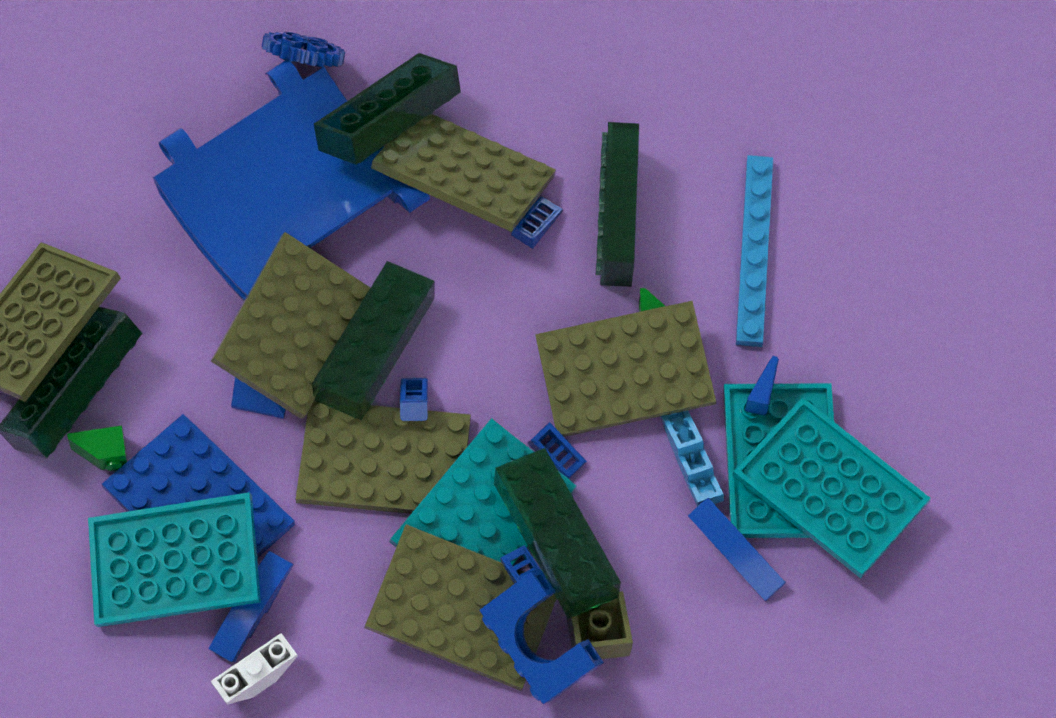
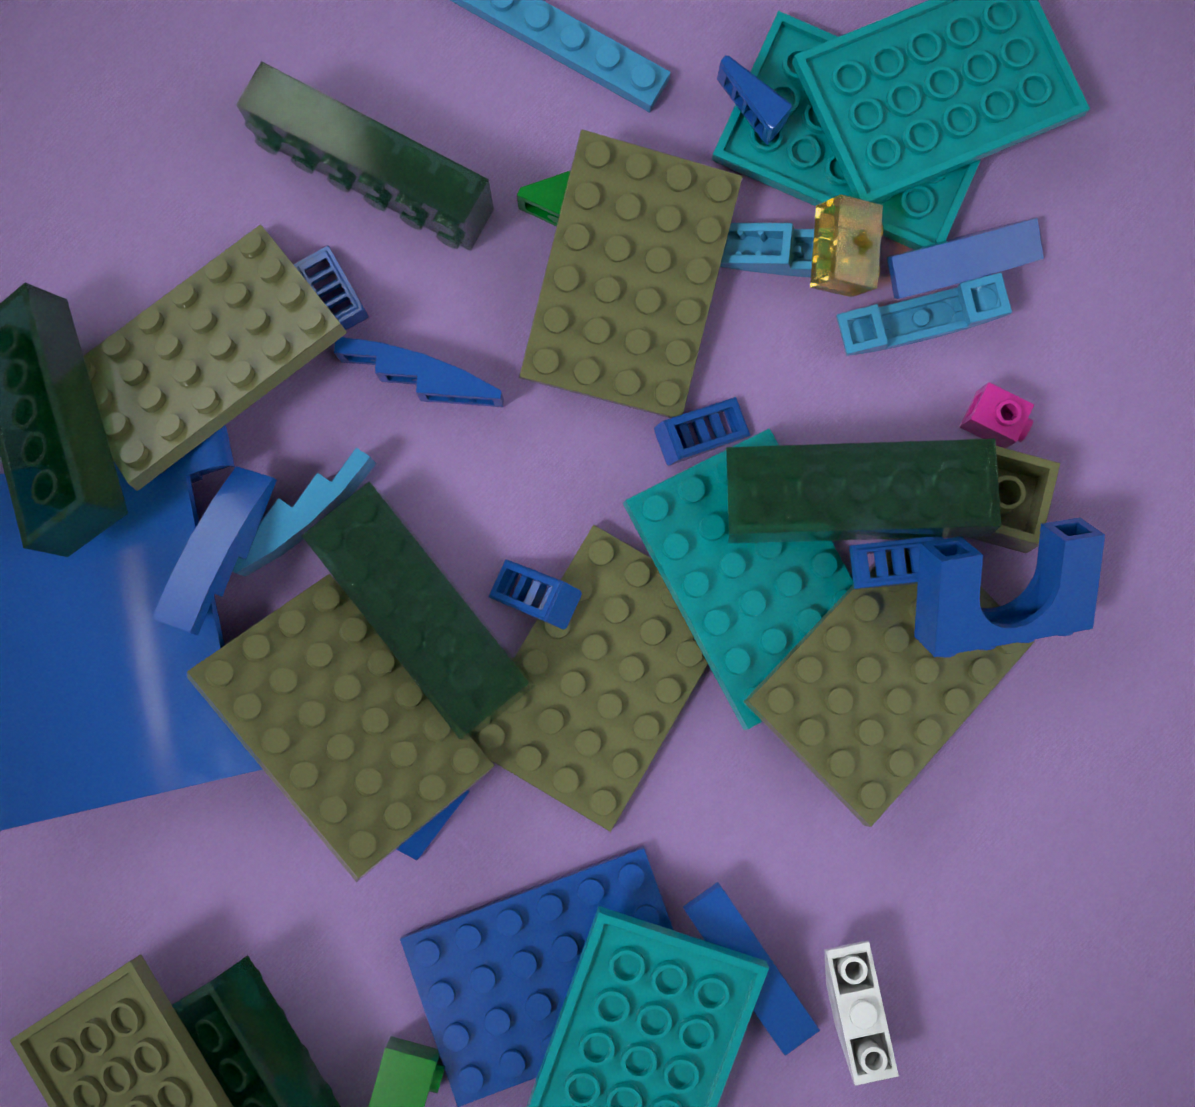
camera: 70 degrees left, 20 degrees up
(350, 218) = (213, 549): none -> blue slope
(381, 250) = (286, 524): none -> dark azure slope
(511, 290) = (433, 378): none -> blue slope
(649, 609) = (998, 416): none -> dark pink brick
(686, 471) = (846, 246): none -> clear yellow brick
(686, 542) = (924, 317): none -> dark azure slope

